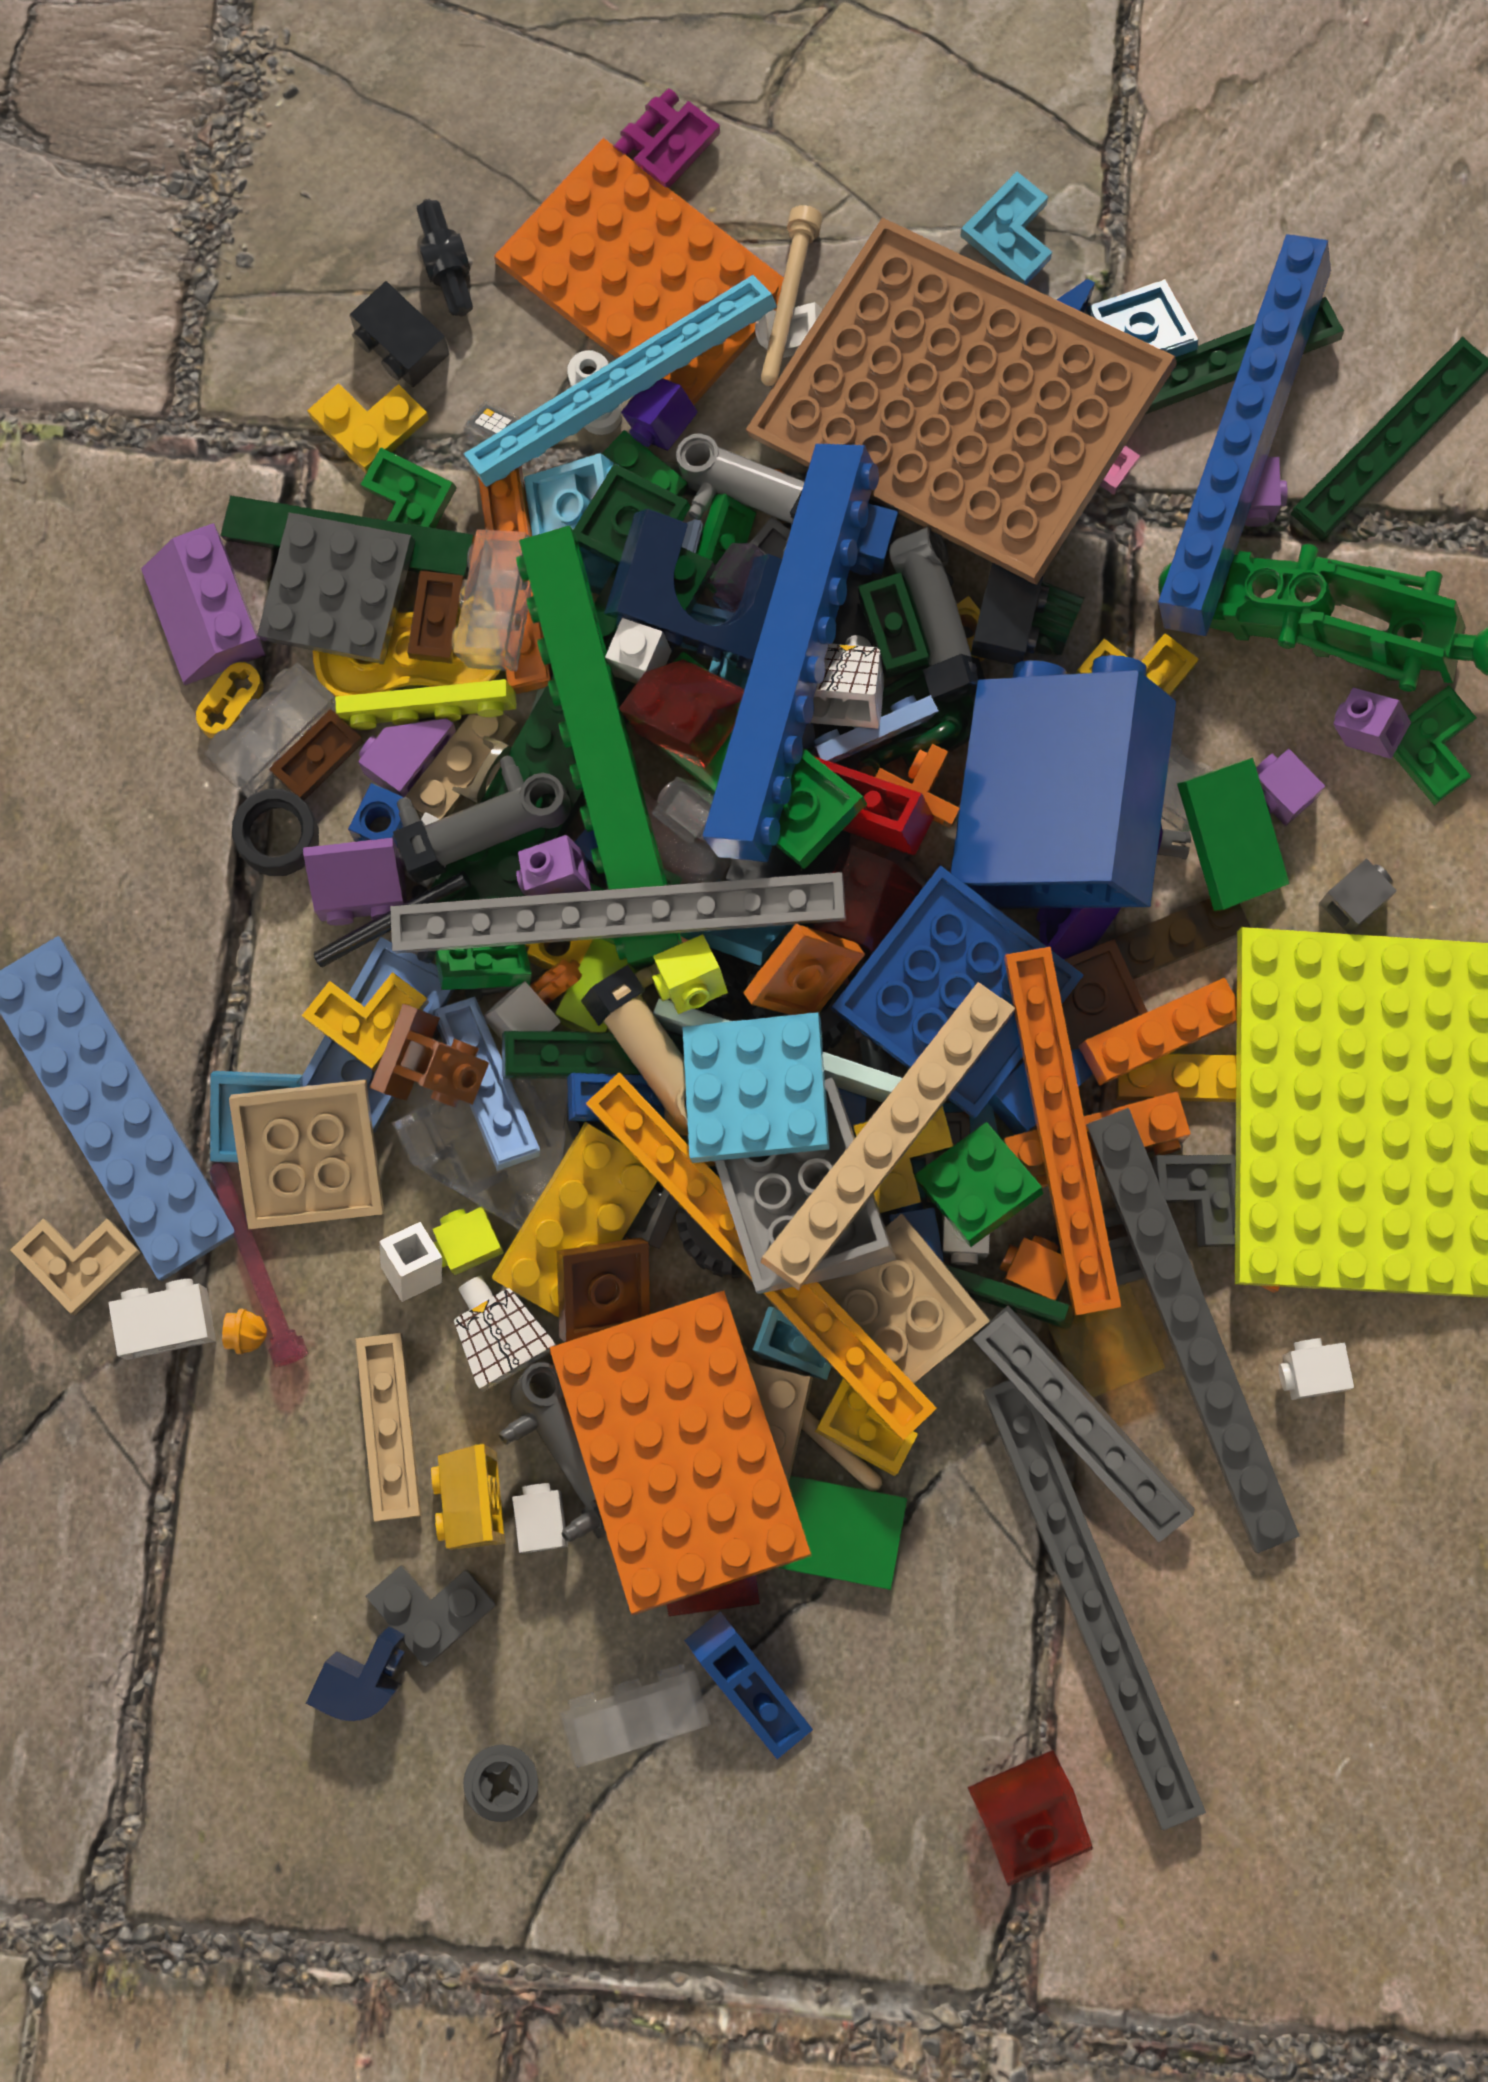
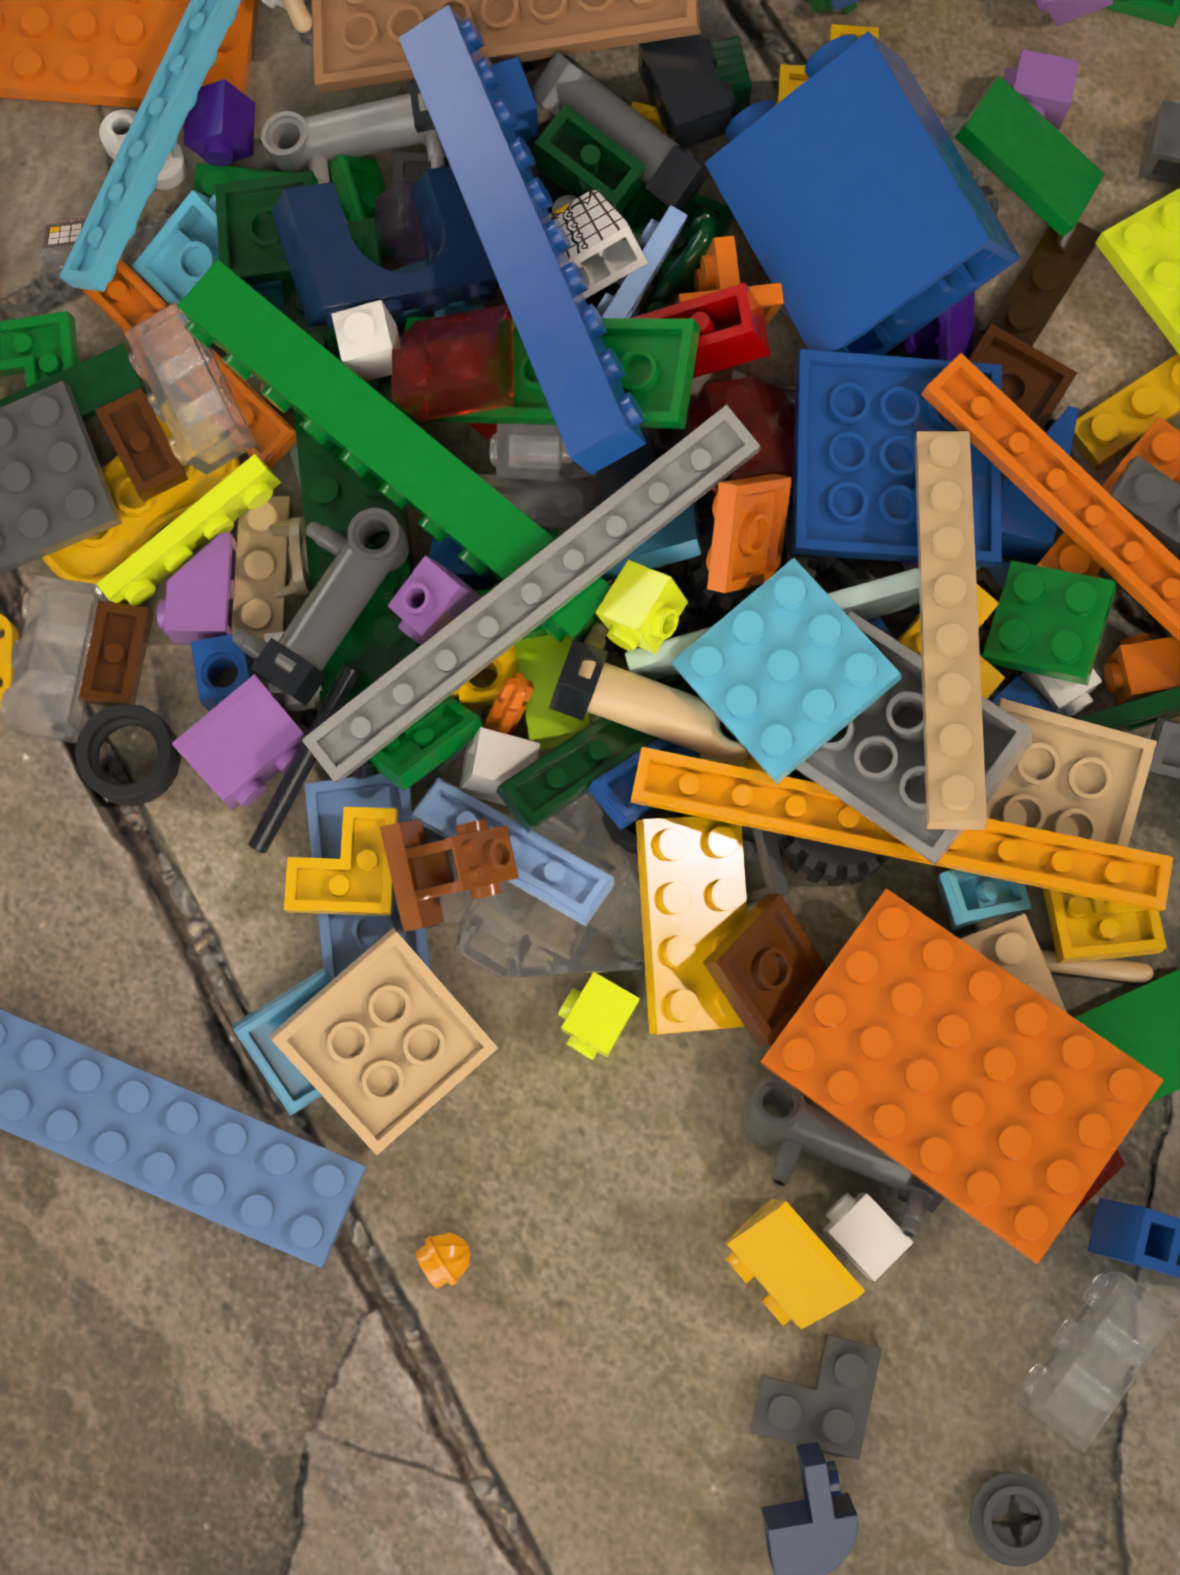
camera: 35 degrees left, 0 degrees up
(76, 1273) = (233, 1323): tan plate -> none
(161, 1320) = (354, 1306): white brick -> none
(285, 1344) = (492, 1240): clear pink piece -> none
(388, 1427) = (654, 1251): tan plate -> none
(411, 1261) = (561, 1073): white brick -> none
(498, 1334) = (695, 1083): white torso -> none
(1160, 1031) = (1099, 376): orange plate -> none

